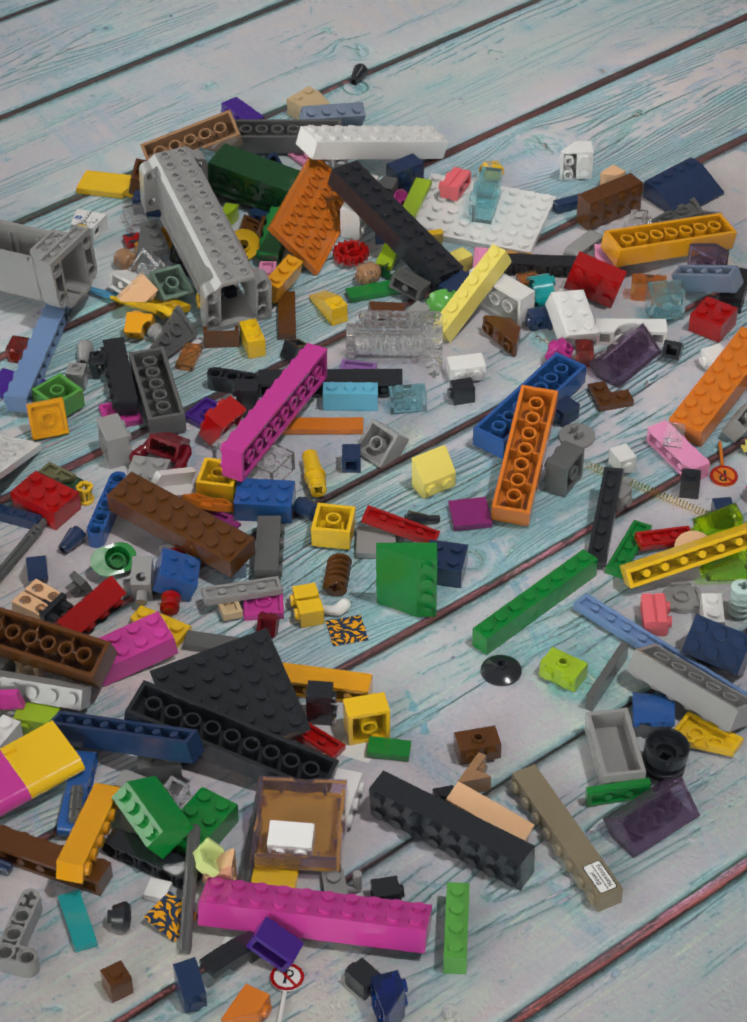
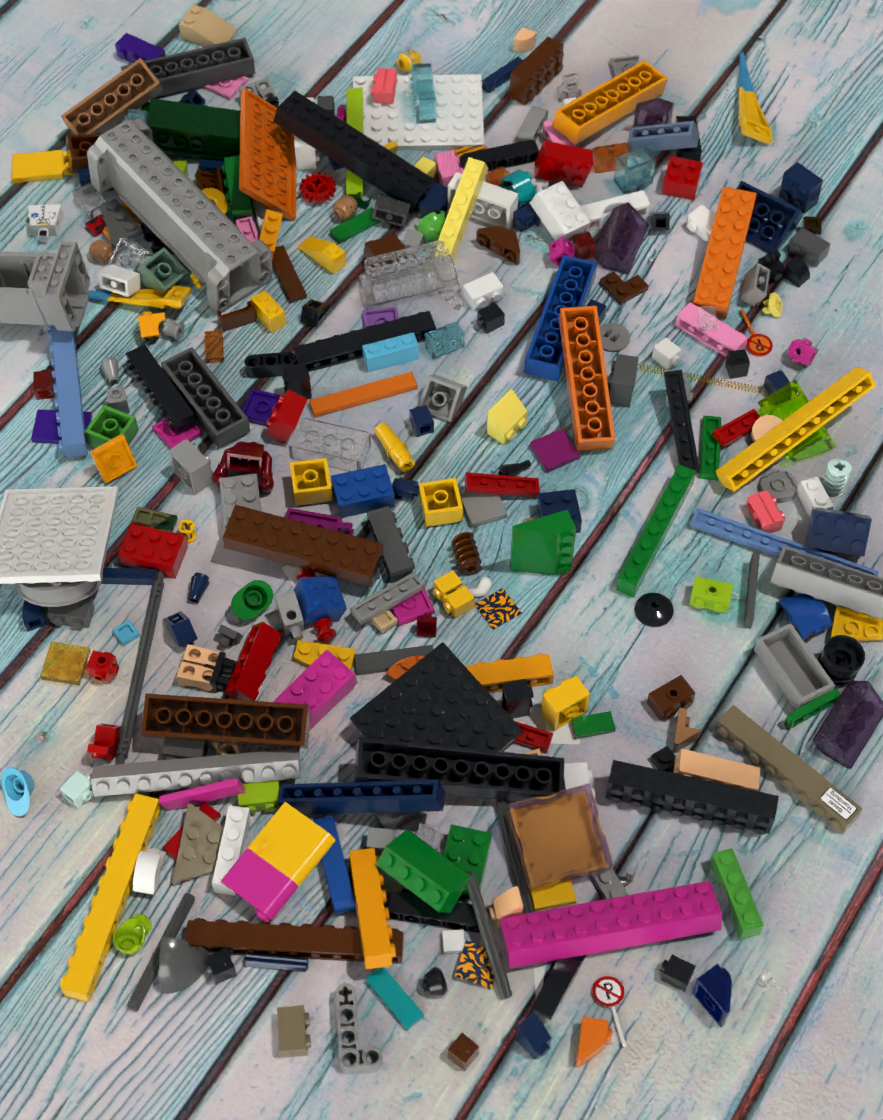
camera: 20 degrees left, 15 degrees up
(75, 802) = (343, 880): dark grey axle -> none
(96, 362) = (131, 379): black bracket -> none
(103, 519) = (216, 551): blue beam -> none
(138, 290) = (136, 288): light nougat slope -> none
(175, 332) = (191, 325): dark grey wing -> none
(176, 480) = (274, 499): white panel -> none
(206, 857) = (492, 902): yellowish green bracket -> none
(209, 503) = (311, 510): orange tile -> none
(273, 412) = (338, 398): dark pink brick -> none
(275, 944) = (590, 967): dark purple brick -> none
(291, 837) = (558, 855): white brick -> none
(349, 112) = (243, 27): sand blue brick -> none
(371, 142) = (290, 61): white brick -> none
(387, 888) = (659, 876): black brick -> none
(406, 170) = (334, 83): dark blue brick -> none
(576, 161) = (488, 31): white slope -> none
(680, 184) = (594, 37): dark blue slope -> none
(683, 211) = (606, 68): dark grey wing -> none

